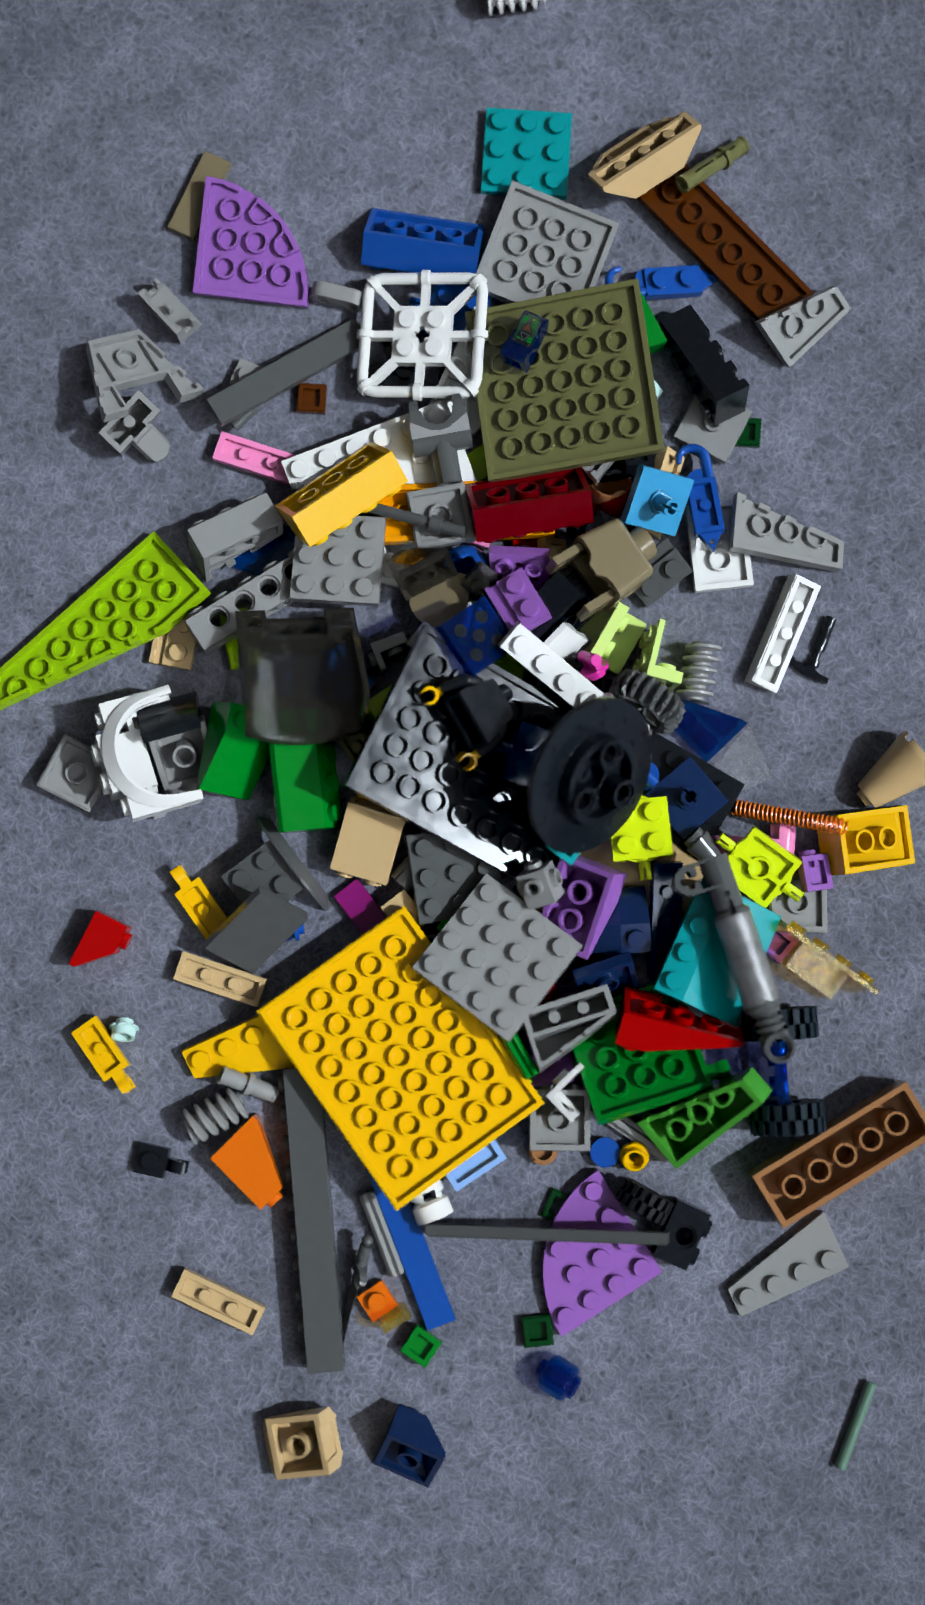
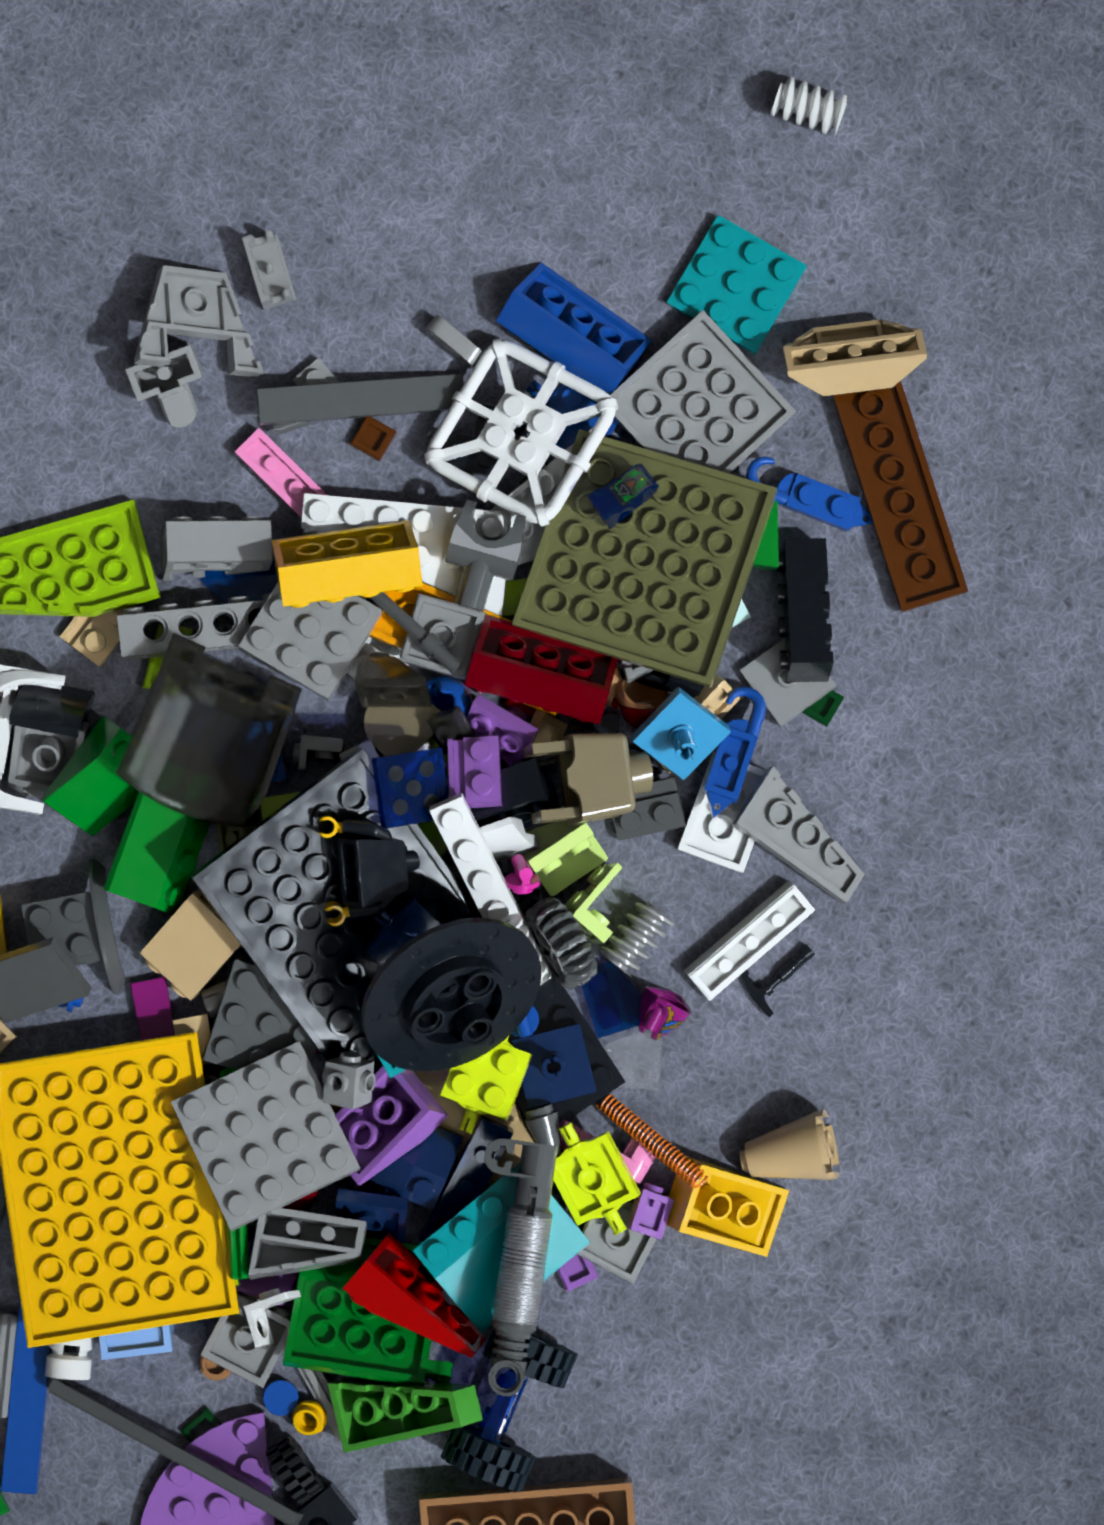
camera: 30 degrees right, 0 degrees up
(188, 212) = (362, 160): dark tan tile -> none
(247, 250) = (383, 245): medium lavender plate -> none
(720, 160) = (942, 395): olive pin -> none
(747, 718) = (661, 1012): none -> magenta hat
(803, 323) = (939, 617): light grey wing -> none
(819, 968) = (604, 1315): clear yellow bracket -> none

